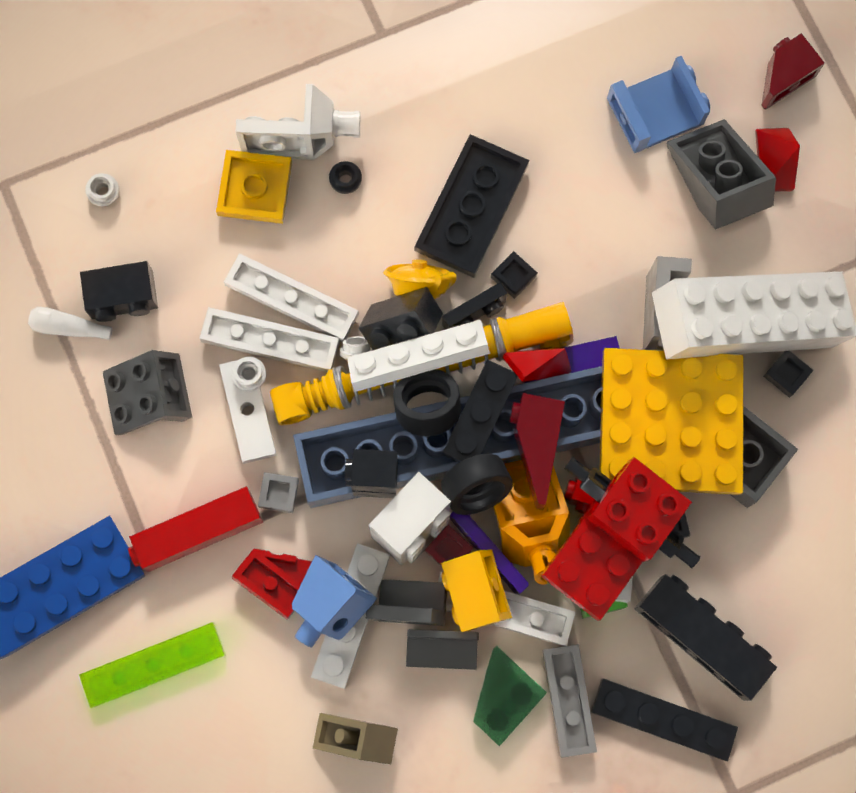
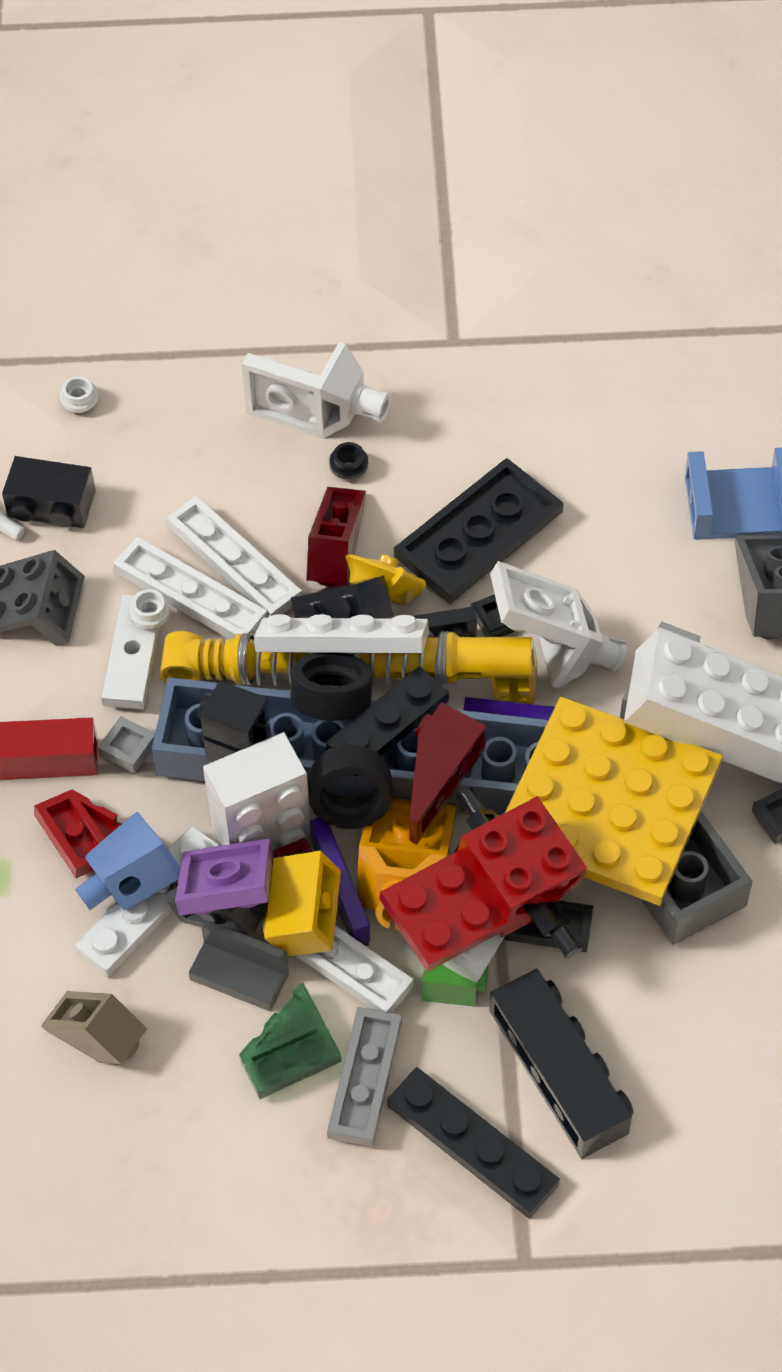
camera: 25 degrees right, 20 degrees down
(254, 186) = (243, 439): yellow plate -> none
(363, 249) = (334, 536): none -> dark red slope
(413, 597) = (224, 877): none -> medium lavender plate
(538, 363) = (480, 690): red slope -> none
(569, 277) = (559, 618): none -> white plate

